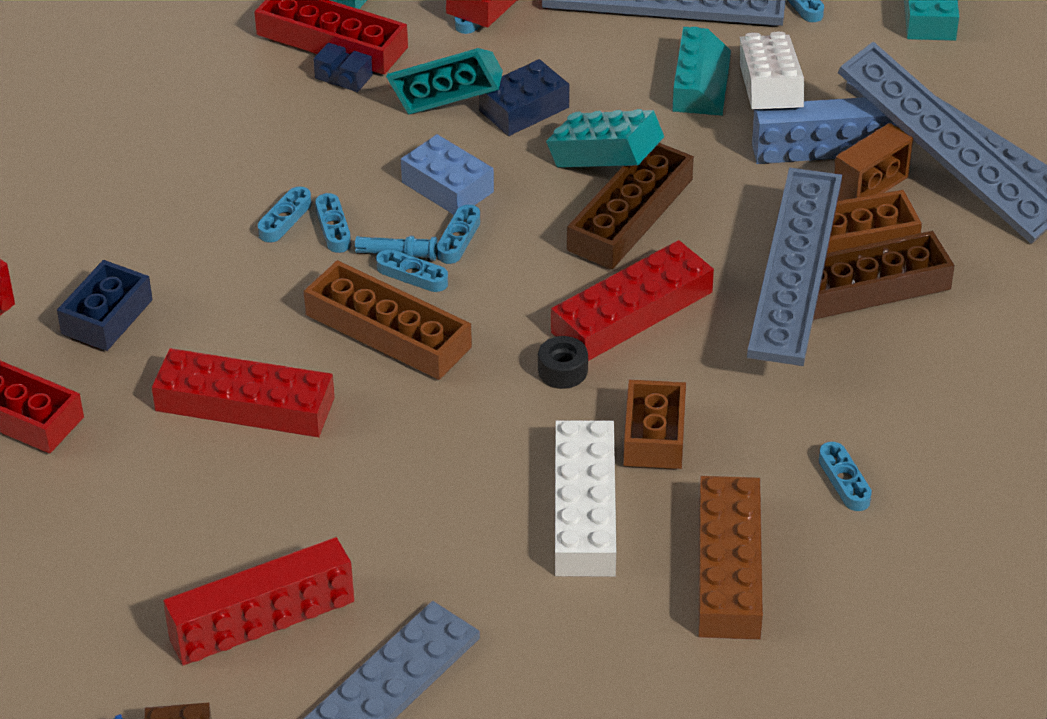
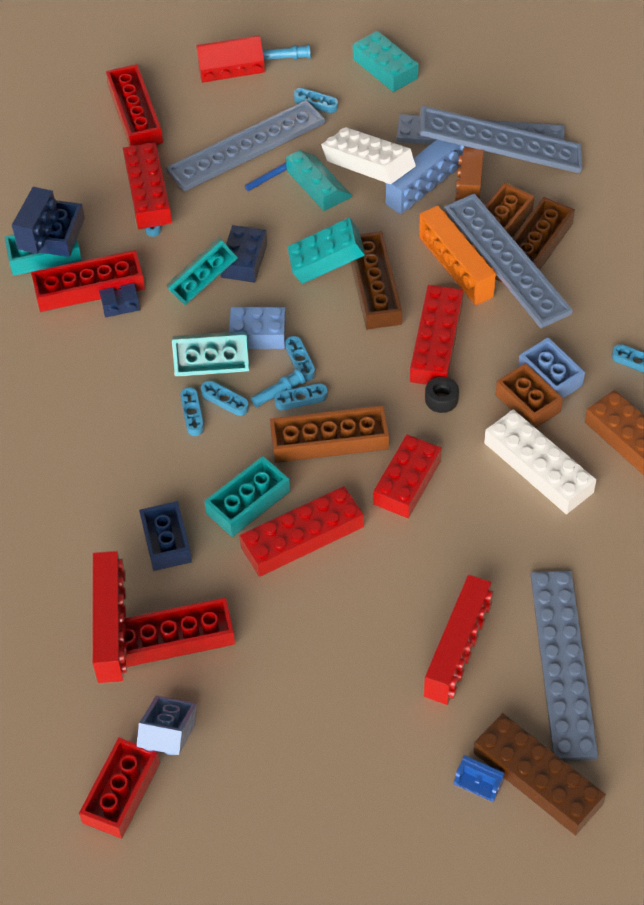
camera: 40 degrees left, 10 degrees up
(230, 321) = (247, 496): none -> teal brick
(361, 165) = (210, 353): none -> brick
(420, 414) = (407, 476): none -> red brick
(647, 41) = (266, 177): none -> blue bar
(716, 415) = (553, 367): none -> medium blue brick
(754, 232) = (457, 255): none -> orange brick

